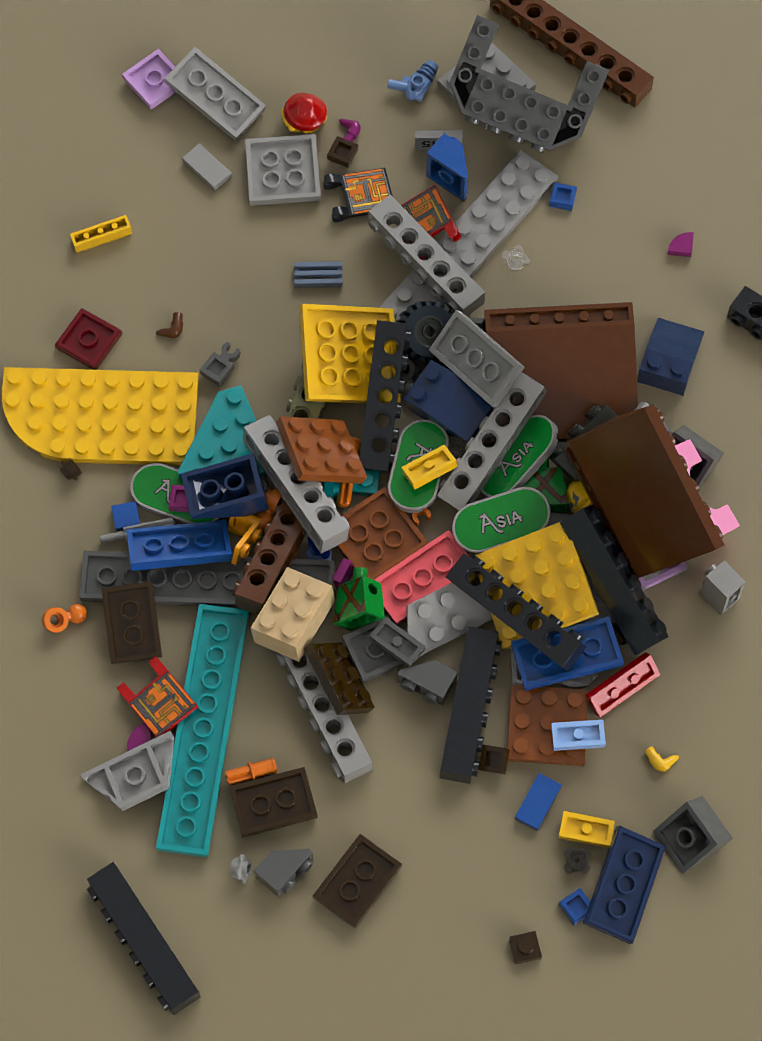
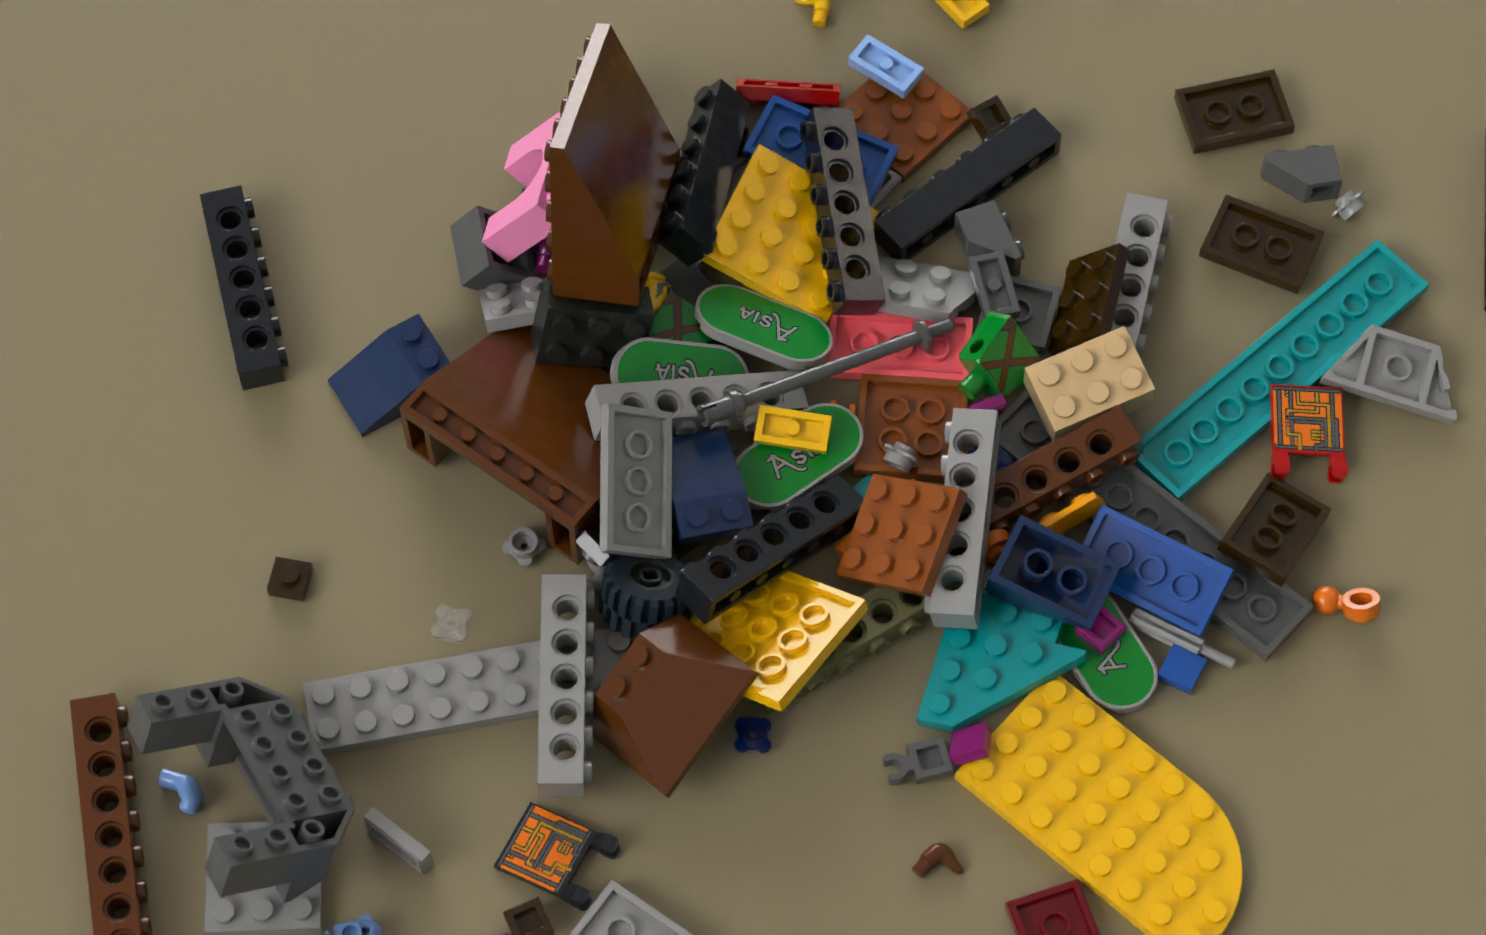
camera: 140 degrees left, 5 degrees down
(70, 469) = (1207, 771): dark brown plate -> none
(139, 736) = (1360, 411): magenta tile -> none
(201, 389) = (970, 744): none -> magenta tile
(251, 771) = (1261, 289): orange axle -> none
(318, 270) = (718, 784): sand blue tile -> none
(362, 503) = (900, 456): none -> light grey plate
(364, 284) = (668, 700): none -> reddish brown slope
(432, 214) = (506, 749): flag -> none
(448, 166) = (421, 782): blue slope -> none
(467, 447) = (735, 403): none -> dark grey bar
(538, 801) = (978, 56): blue tile -> none
(559, 90) = (187, 788): none -> medium blue arm
(563, 196) = (320, 658): blue tile -> none
(617, 221) = (290, 579): none -> dark brown plate
(681, 245) = (247, 492): magenta tile -> none

